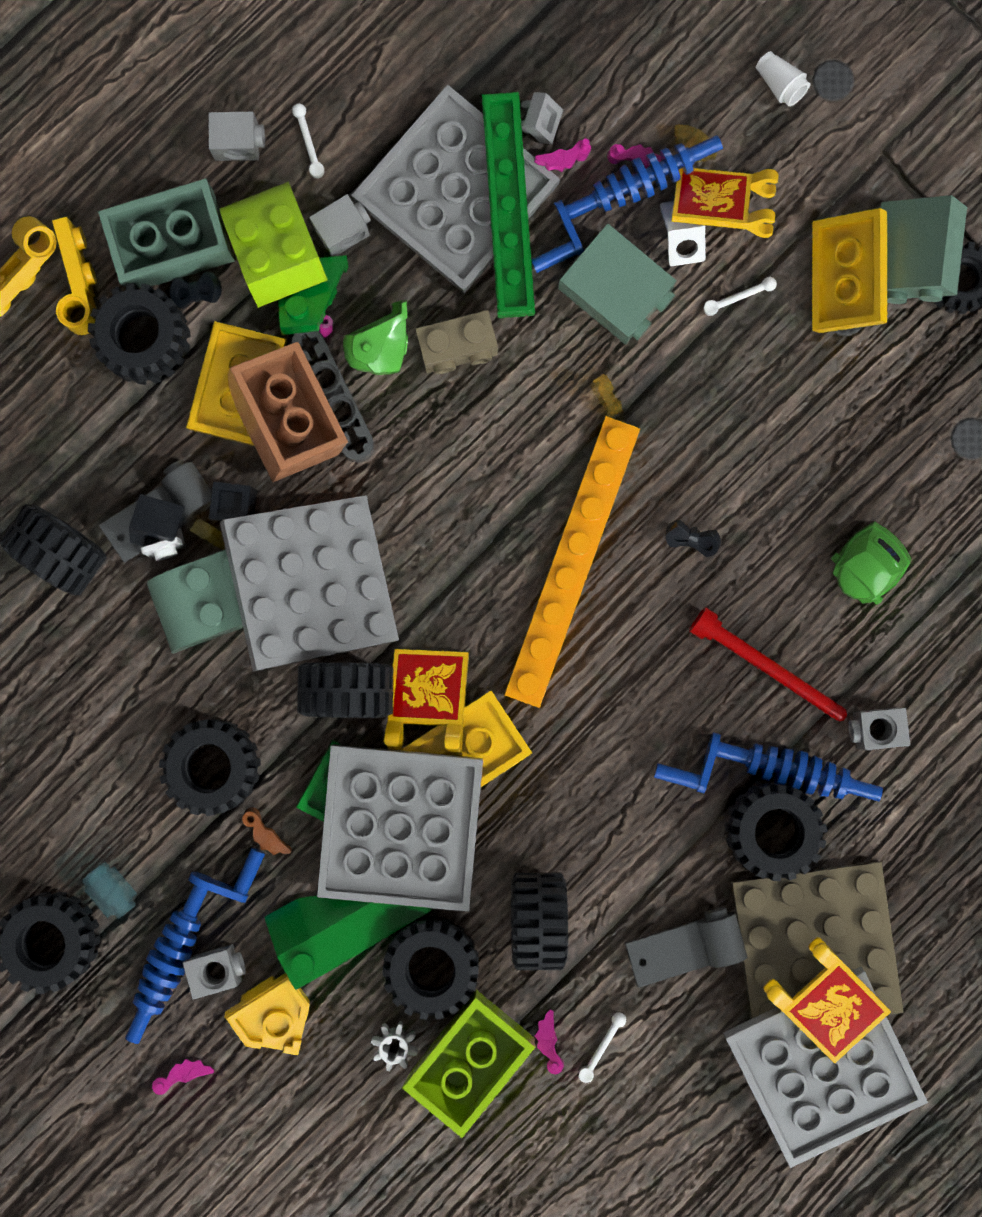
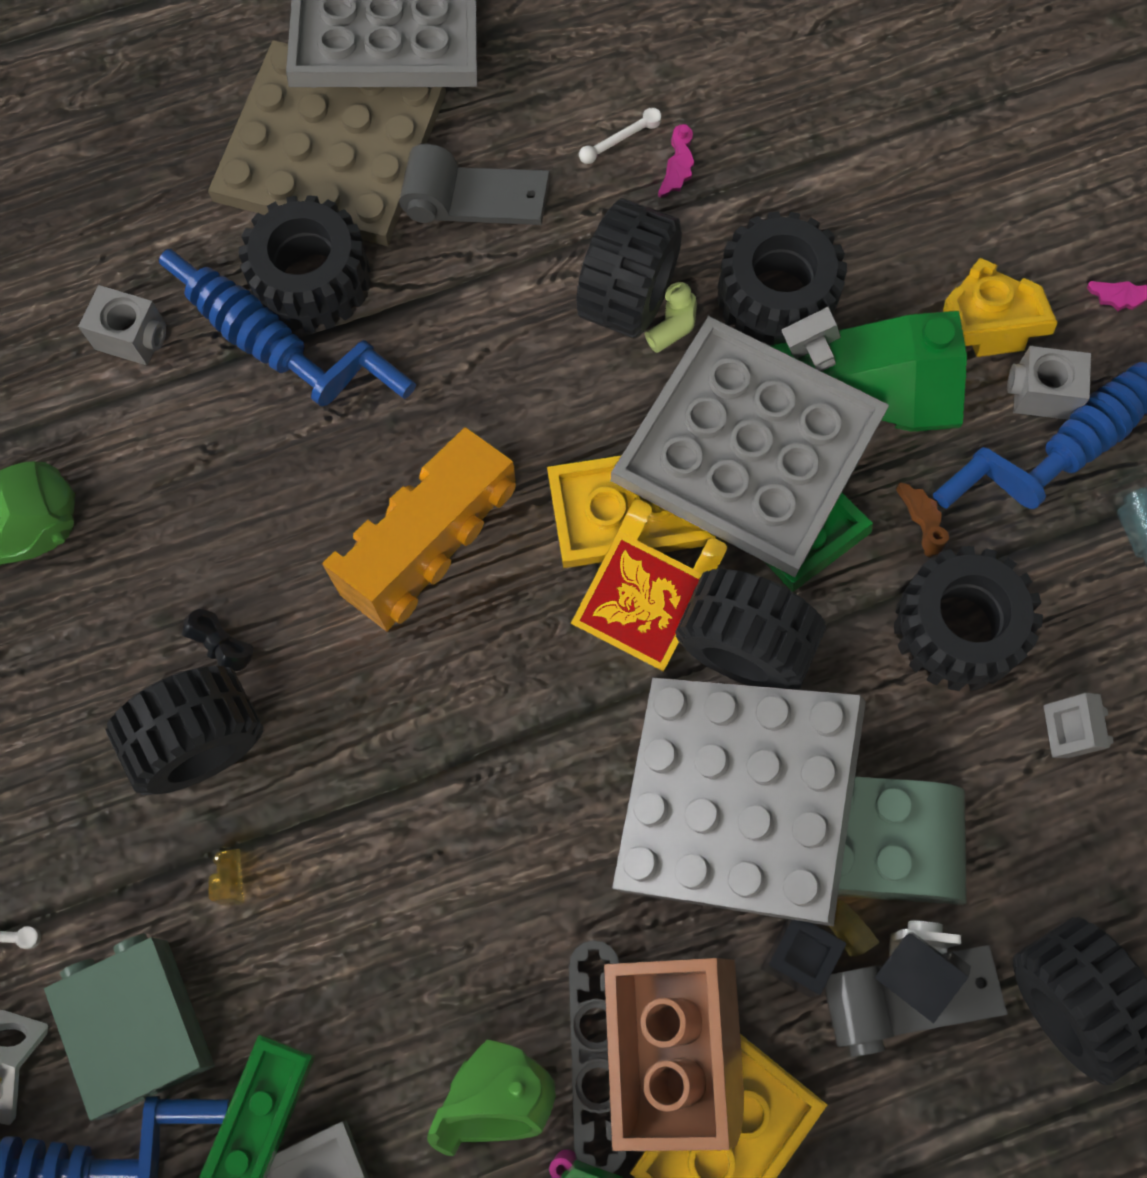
camera: 155 degrees left, 15 degrees down
(114, 726) = (1077, 725): none -> light grey tile
(387, 924) = (812, 337): none -> light grey tile
(404, 1044) = (860, 220): white gear -> none
(457, 342) = (387, 1047): dark tan brick -> none
(469, 1063) = (781, 160): lime brick -> none
(493, 911) = (679, 317): none -> yellowish green arm
(572, 562) = (378, 686): light orange plate -> none
(592, 672) = (422, 529): none -> light orange wedge
(674, 465) = (183, 730): none -> black tyre
(710, 627) = (258, 528): red piece -> none
(832, 1007) = (341, 53): flag -> none

